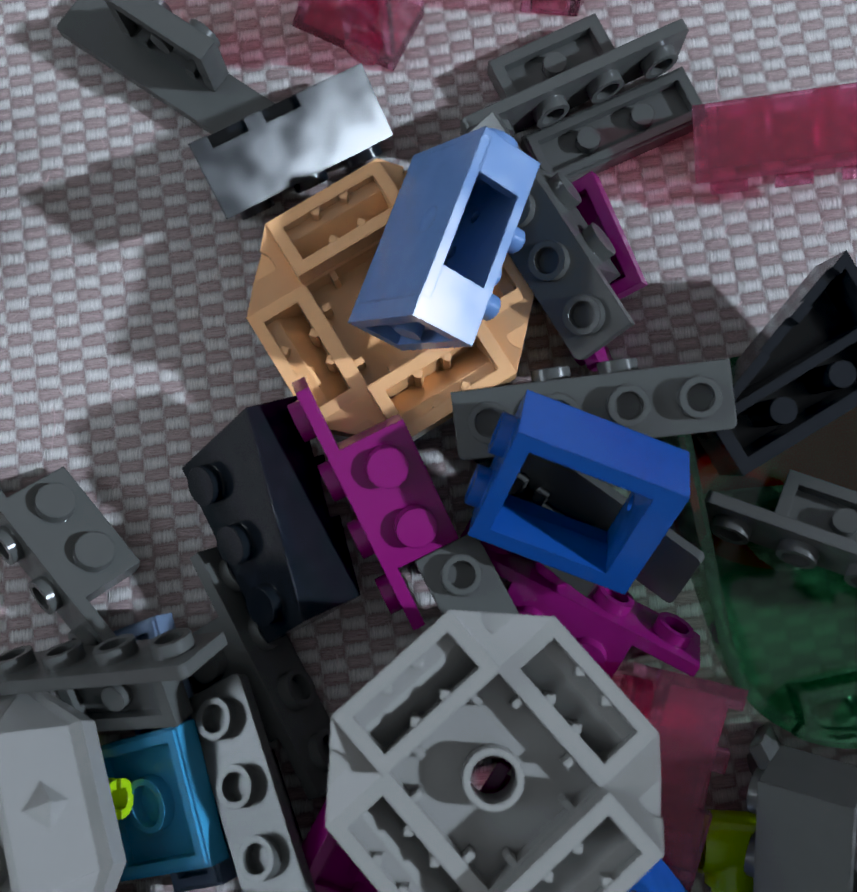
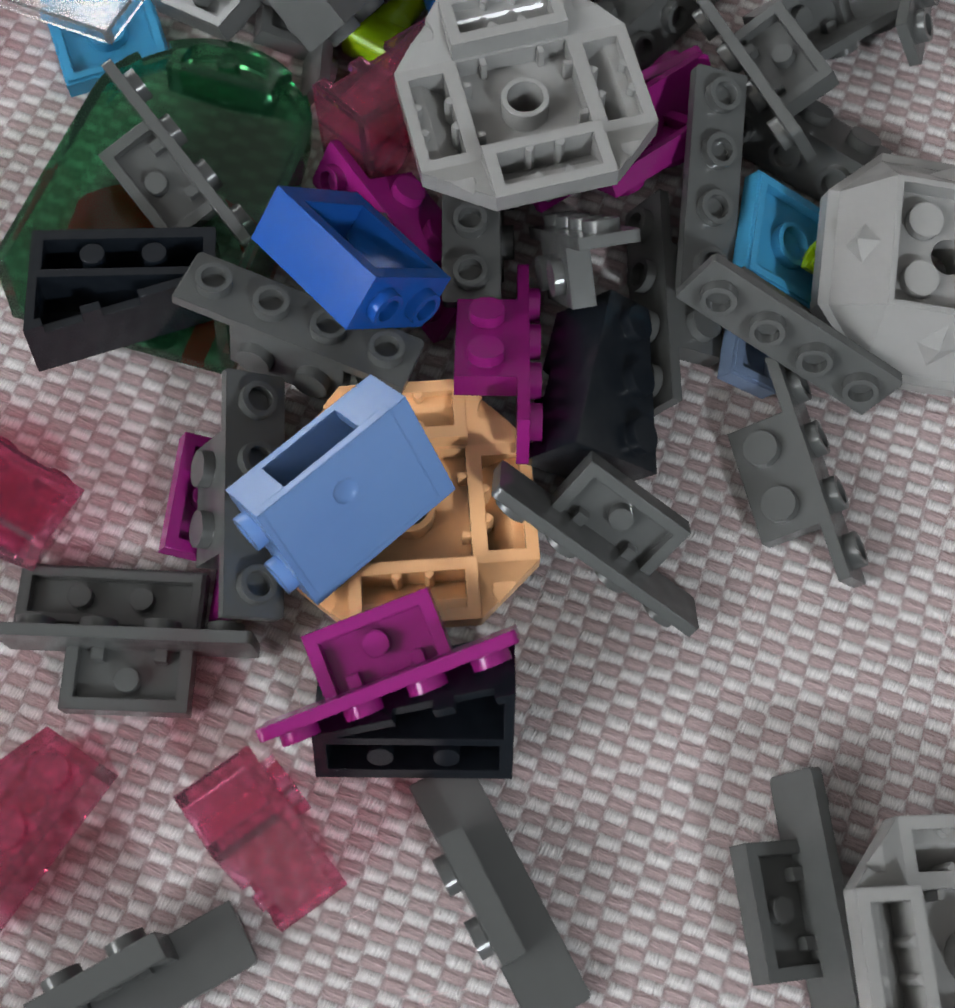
camera: 160 degrees left, 10 degrees down
(201, 367) = (610, 528): none -> dark grey bracket
(320, 127) = (381, 653): none -> magenta bracket
(336, 632) = (566, 259): none -> dark grey bracket

